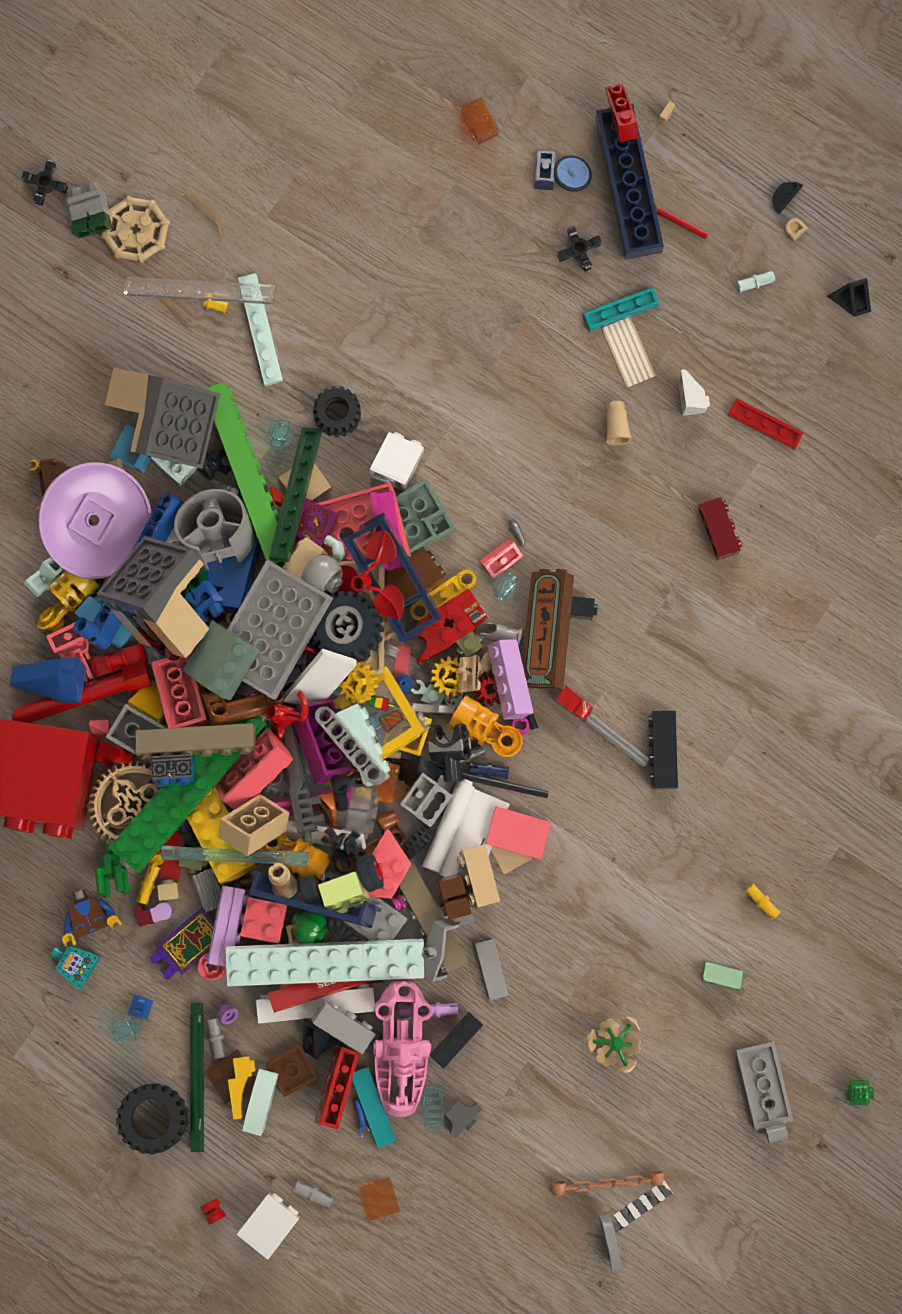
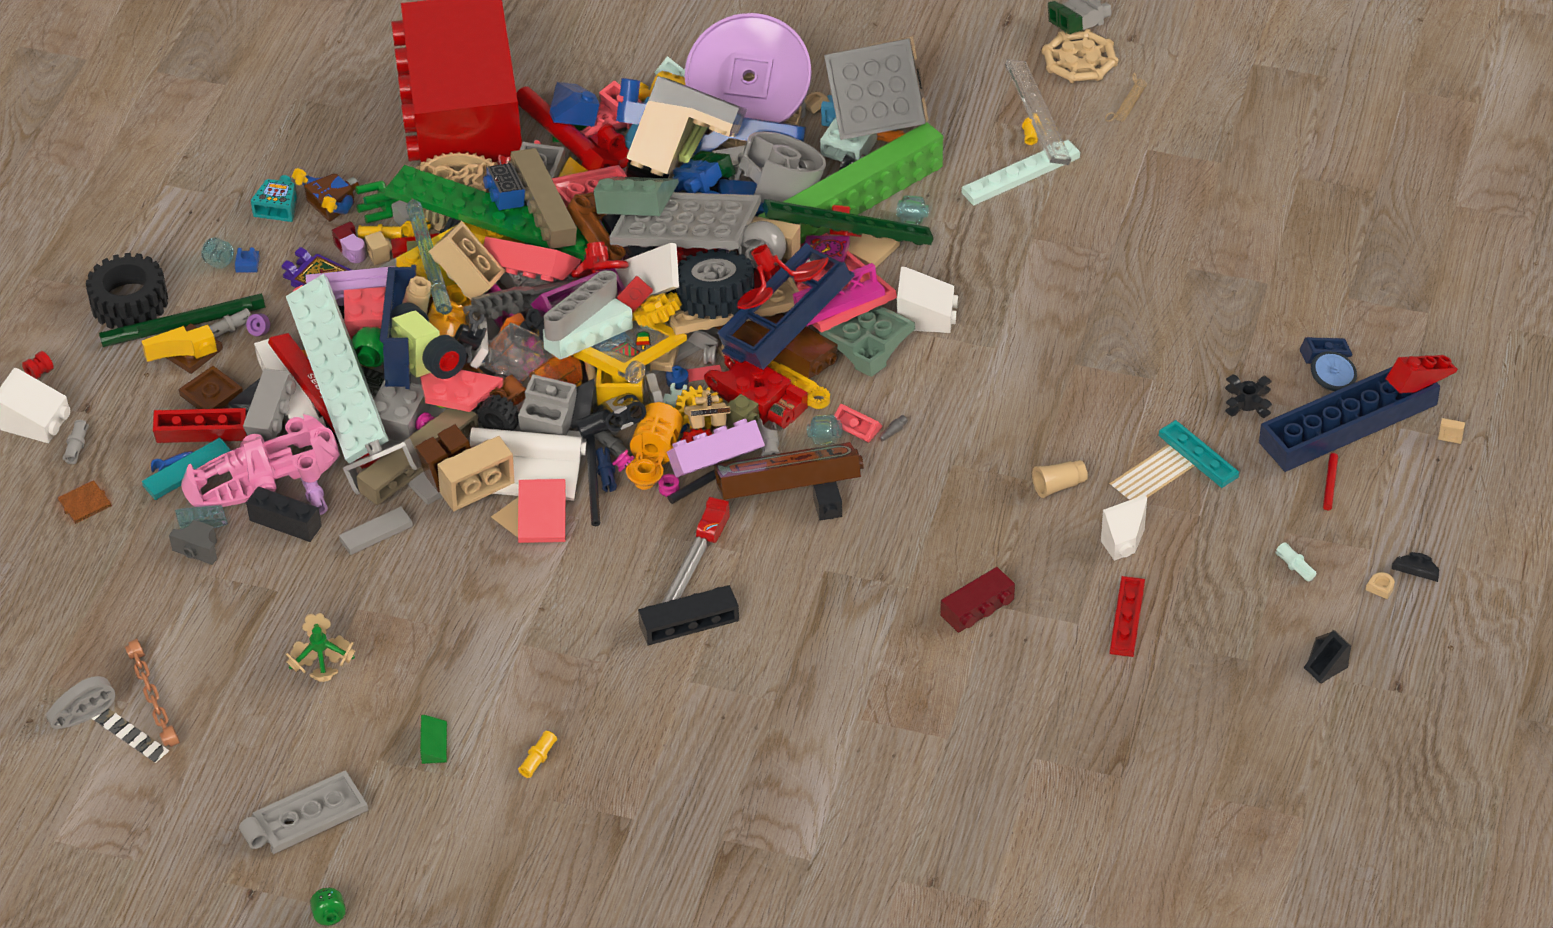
camera: 75 degrees right, 35 degrees down
(260, 1102) = (166, 371): light aqua slope -> none
(337, 395) = (958, 244): black tyre -> none
(340, 697) = (634, 293): none -> red bracket
(479, 121) = (1348, 279): clear orange brick -> none
(491, 750) = (622, 460): none -> dark pink bush

